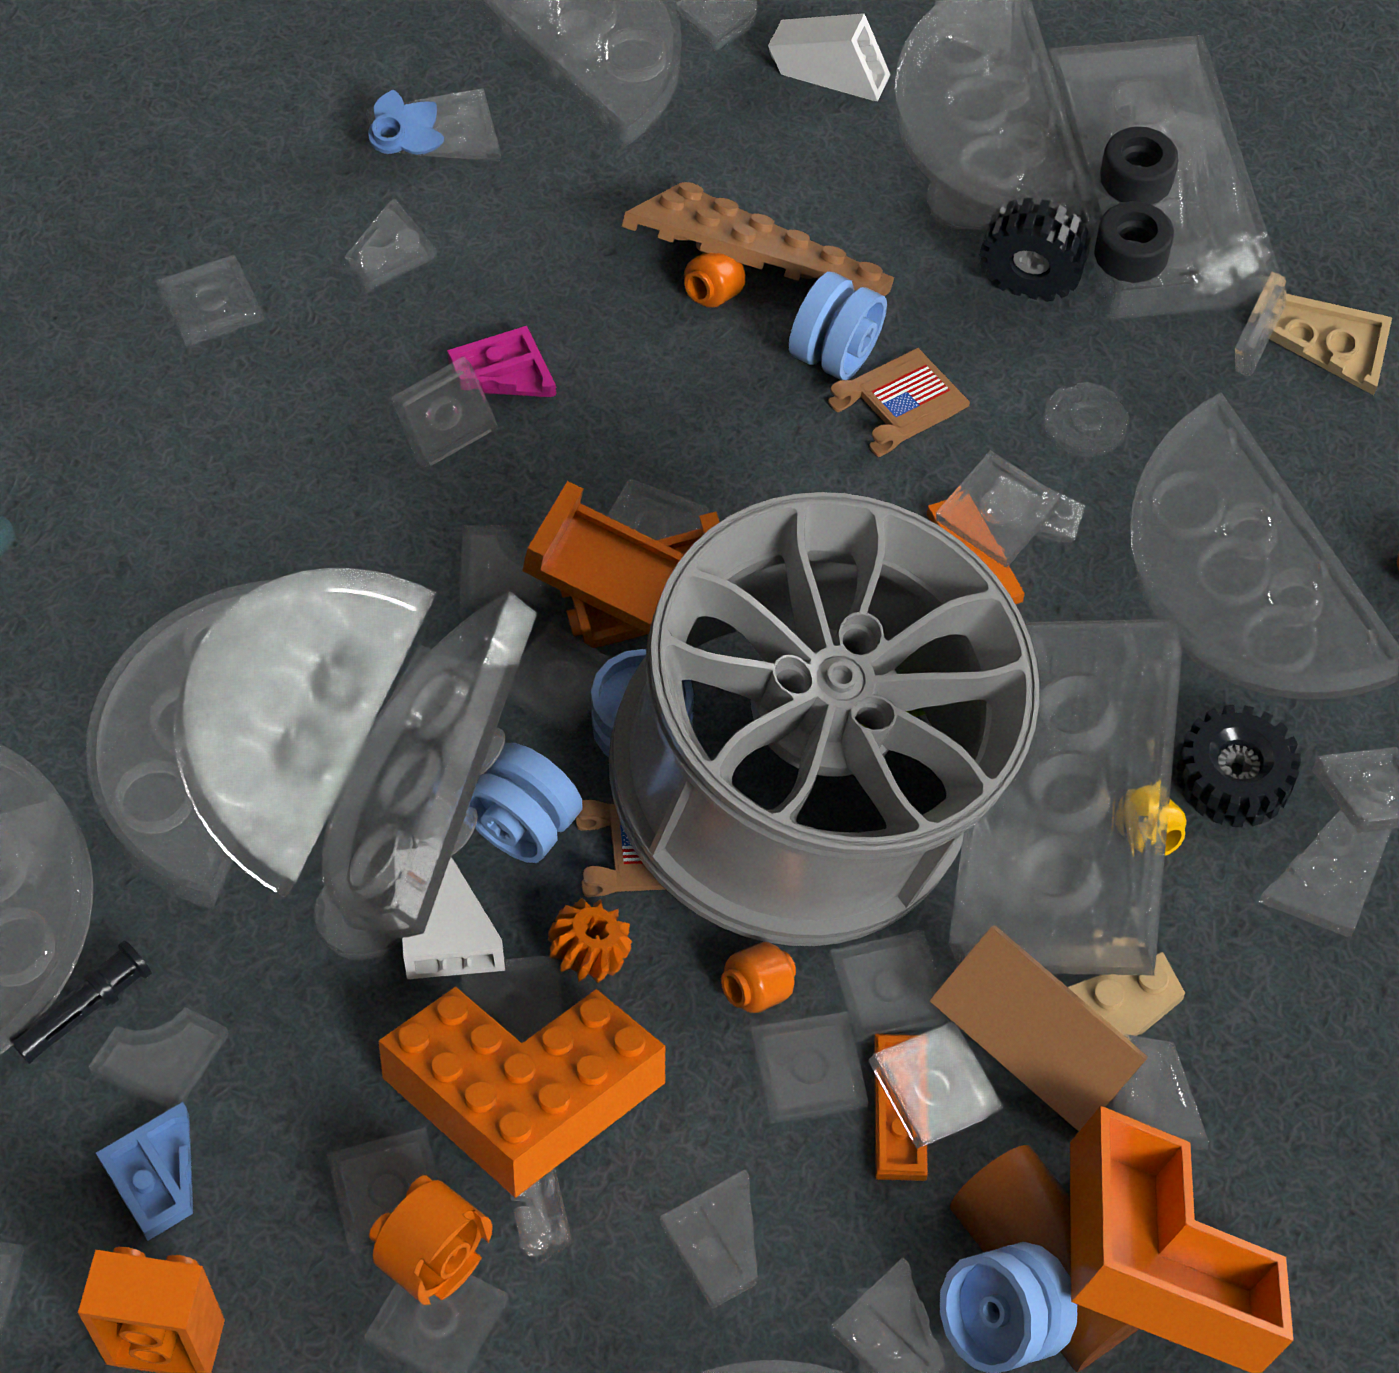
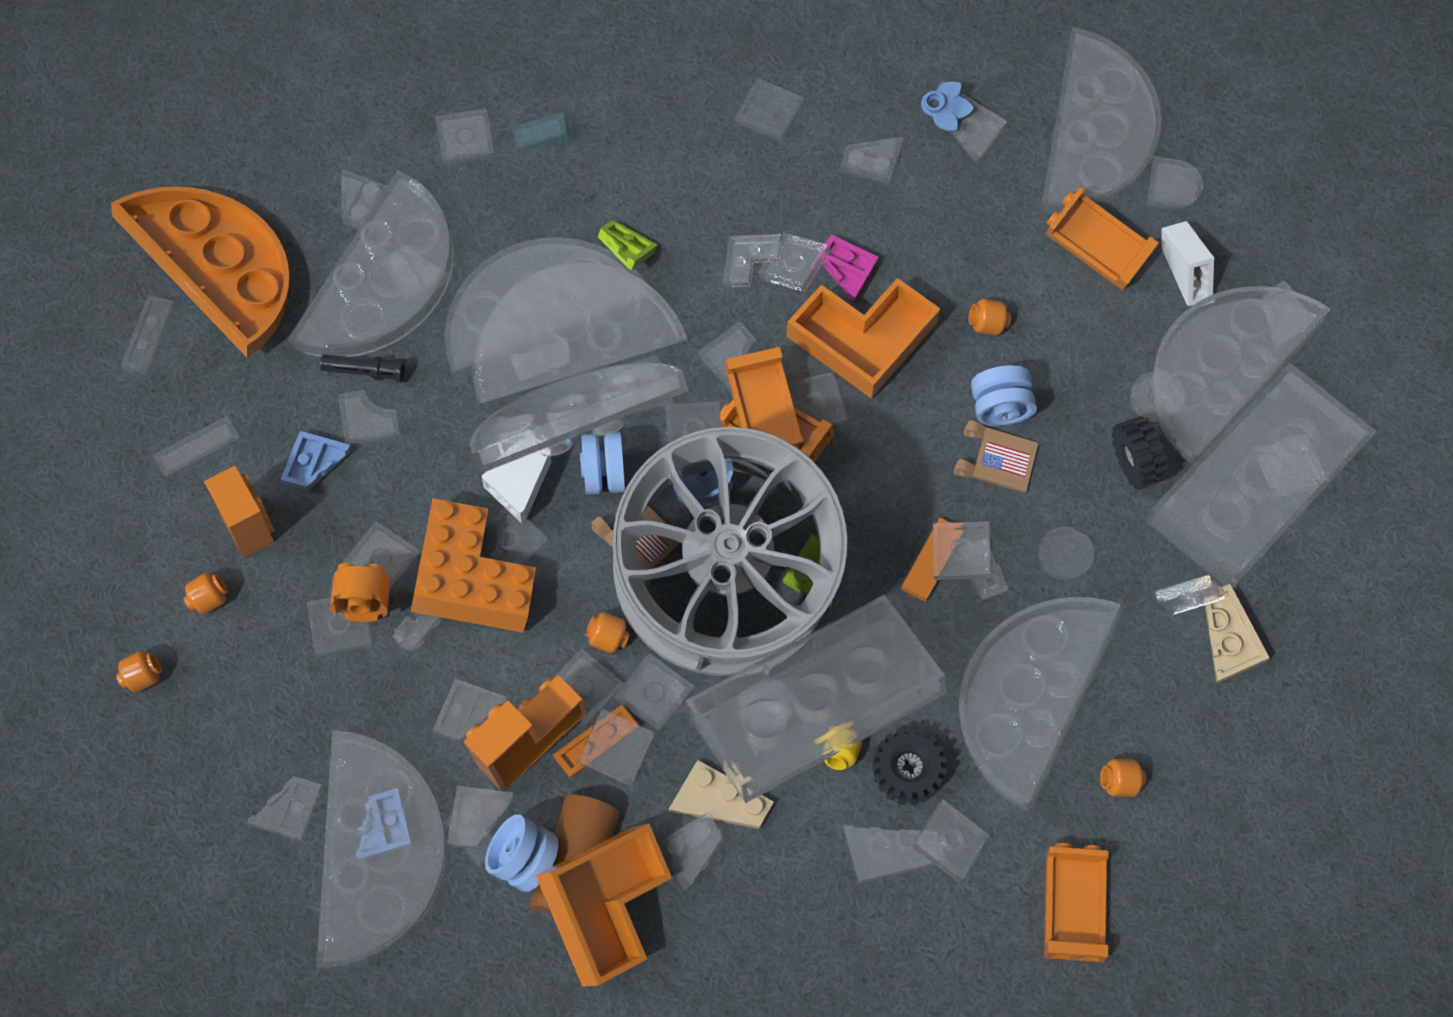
camera: 50 degrees right, 10 degrees up
(232, 567) = (626, 244): none -> lime wing
(377, 450) = (744, 252): none -> clear tile
(589, 940) = (562, 534): orange gear -> none
(624, 423) = (862, 346): none -> orange piece
(725, 109) = (1099, 239): none -> orange panel
(748, 238) = (1026, 313): medium nougat wing -> none
(841, 1169) = (519, 737): none -> orange piece
(1038, 1028) = (676, 771): medium nougat tile -> none
(1136, 148) = (1245, 448): black tyre -> none
(1137, 223) = (1185, 479): black tyre -> none
(1211, 267) = (1204, 545): clear hinge -> none

